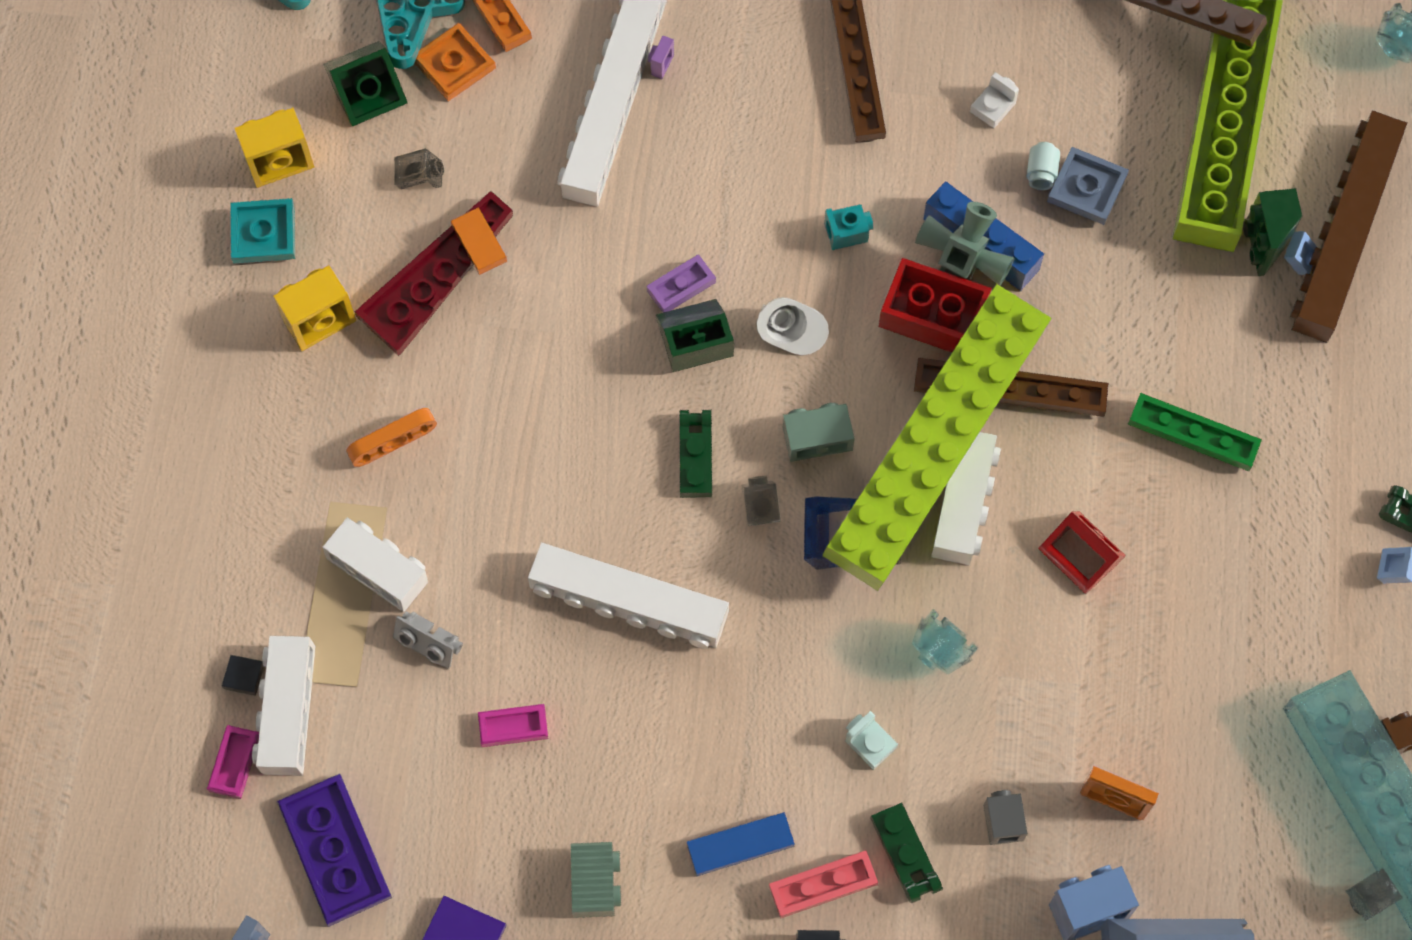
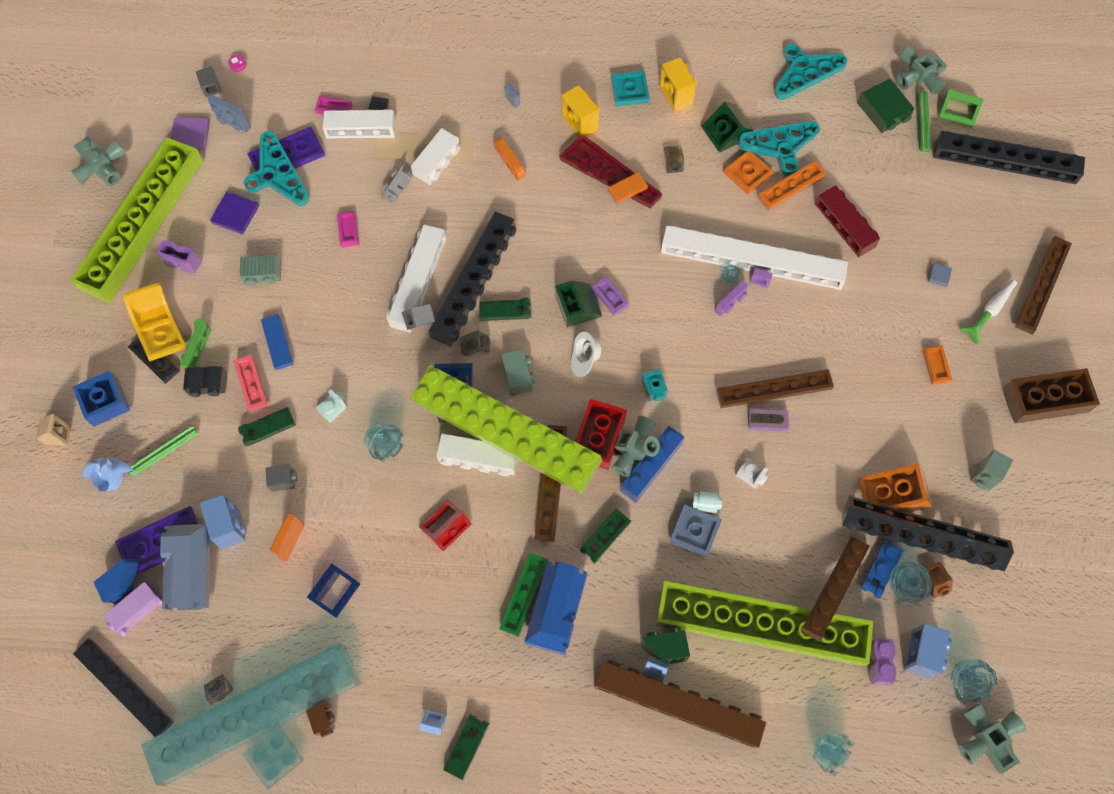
camera: 90 degrees right, 0 degrees up
(254, 428) = (512, 95): none -> sand blue tile
(366, 865) = (280, 179): none -> teal beam
(614, 501) = (497, 225): none -> black brick
(647, 104) = (730, 274): none -> clear light blue tile
(691, 96) = (729, 300): none -> medium lavender plate
(719, 581) = (418, 316): none -> brick
(906, 73) = (768, 419): none -> tile
(1097, 311) = (605, 535): none -> dark green plate
(1189, 735) = (326, 583): none -> clear blue tile
(1221, 378) = (556, 608): none -> blue brick

